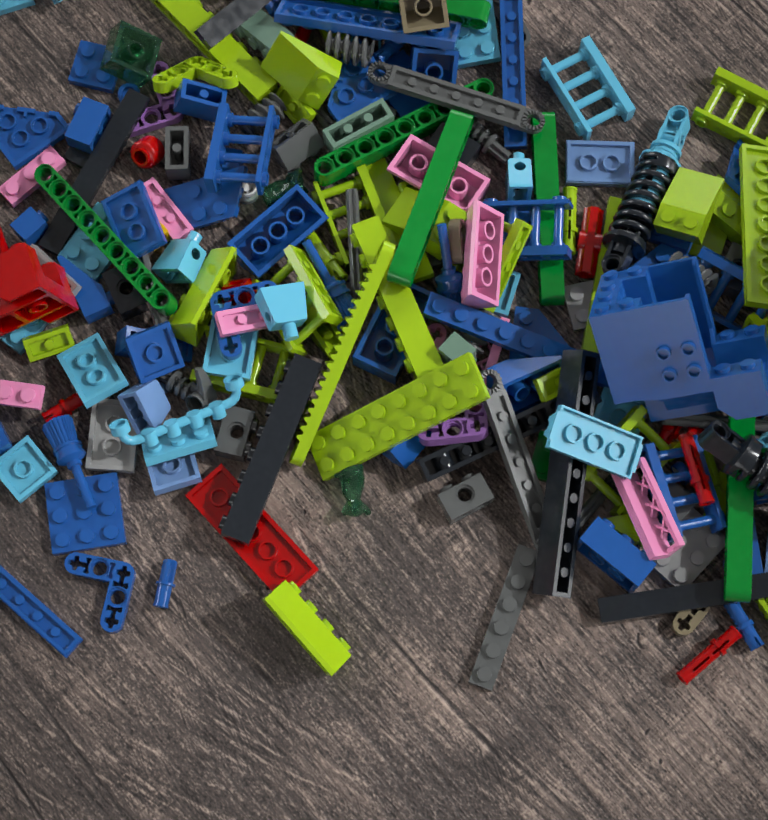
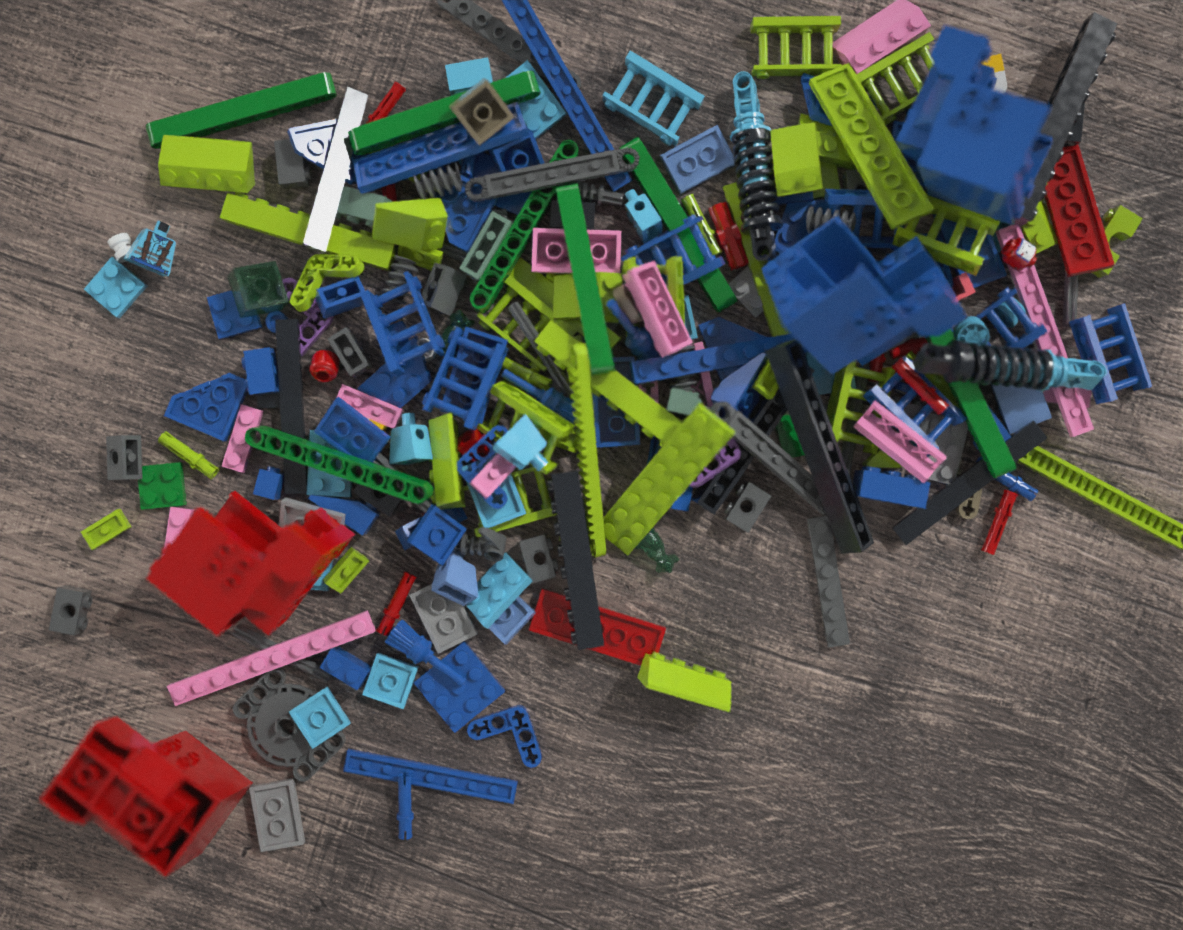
camera: 30 degrees left, 15 degrees up
(92, 370) = (395, 574): medium azure plate -> none
(165, 584) = (555, 705): blue axle -> none
(194, 418) = (501, 569): medium azure bar -> none
(271, 249) = (487, 375): none -> blue fence
(593, 441) = (831, 415): medium azure brick -> none

